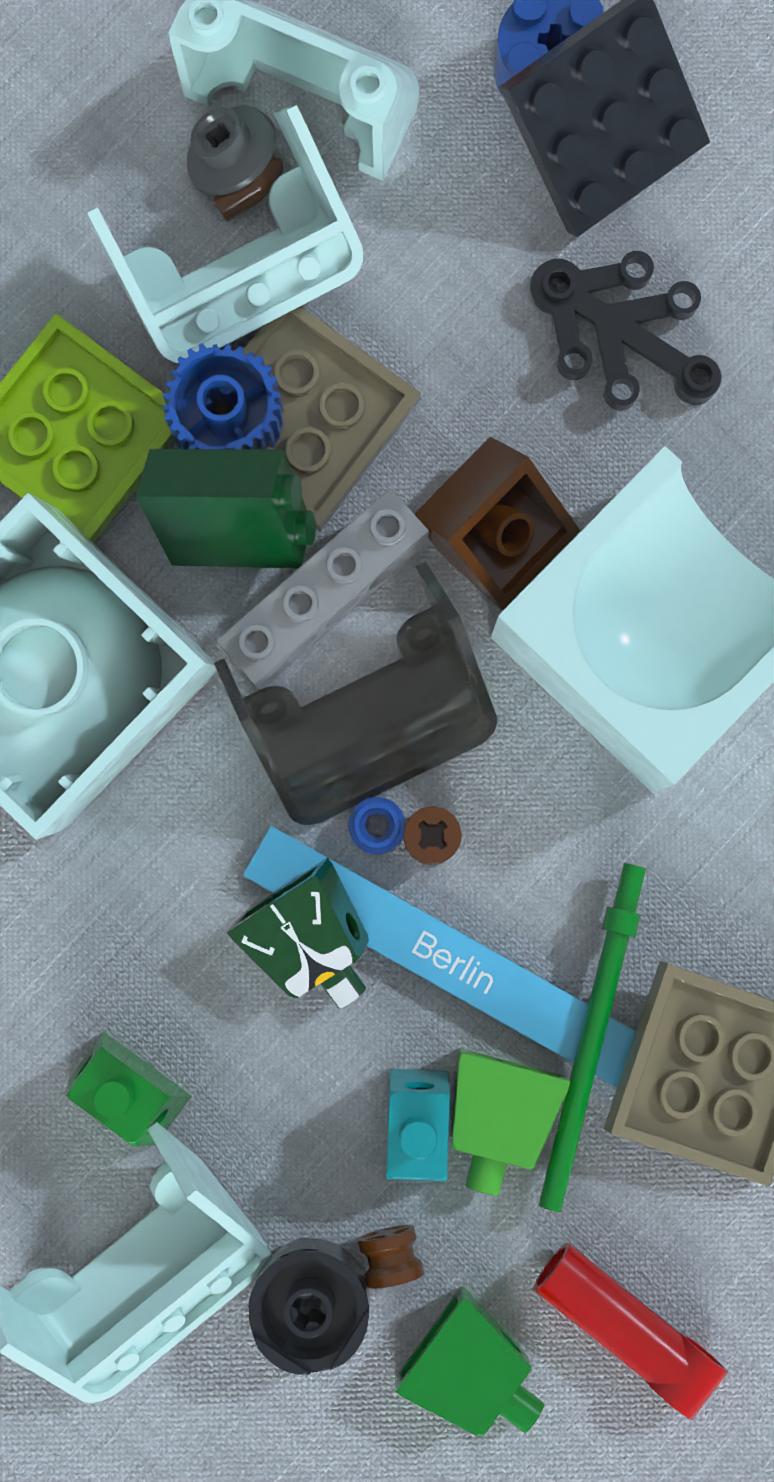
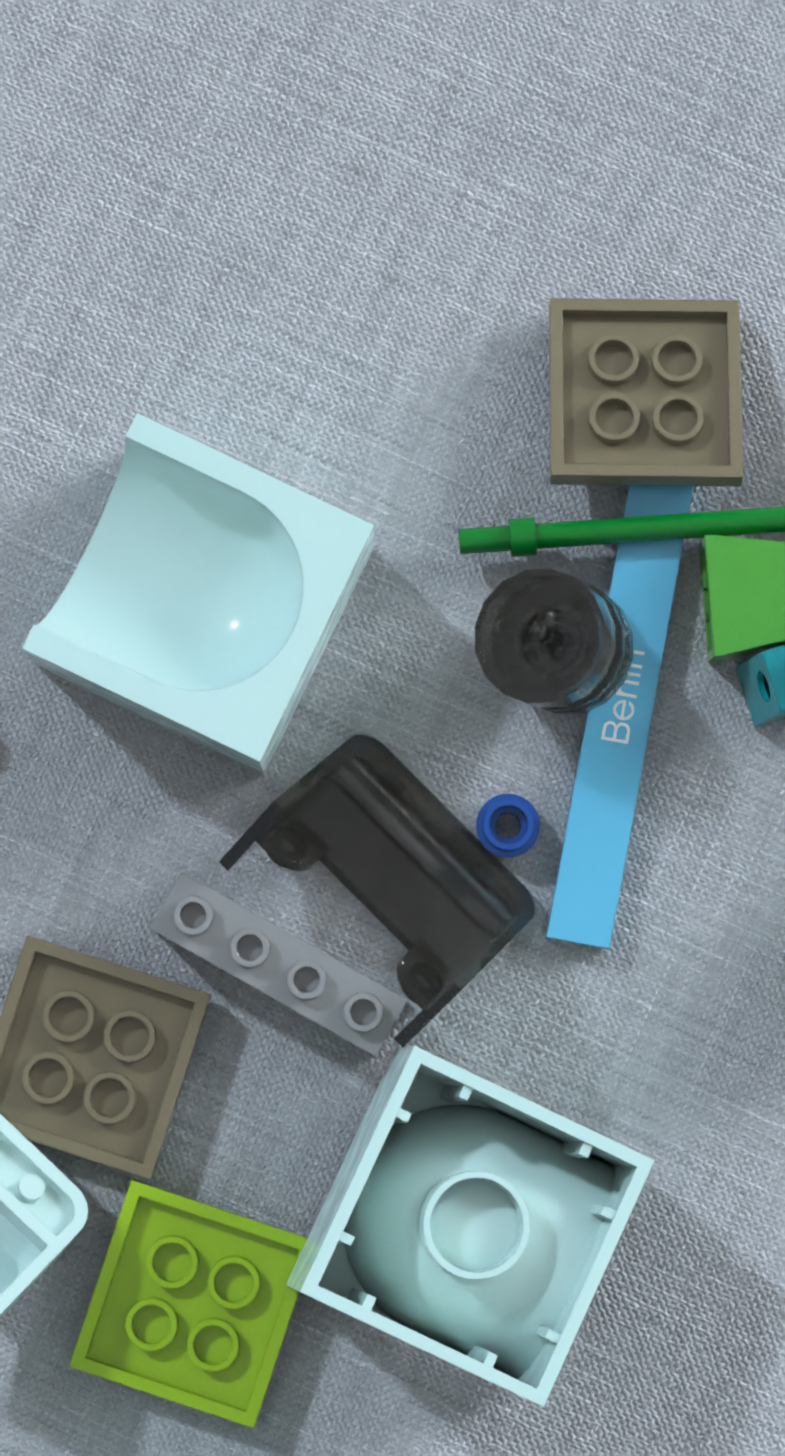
camera: 115 degrees left, 0 degrees up
(226, 507) = (231, 1093): dark green brick -> none
(228, 377) = (87, 1140): blue brick -> none
(306, 936) = (650, 857): dark green torso -> none
(425, 841) = (494, 772): reddish brown wheel -> none
(497, 521) = (140, 806): reddish brown slope -> none
(544, 897) = (526, 623): none -> clear smoke wheel

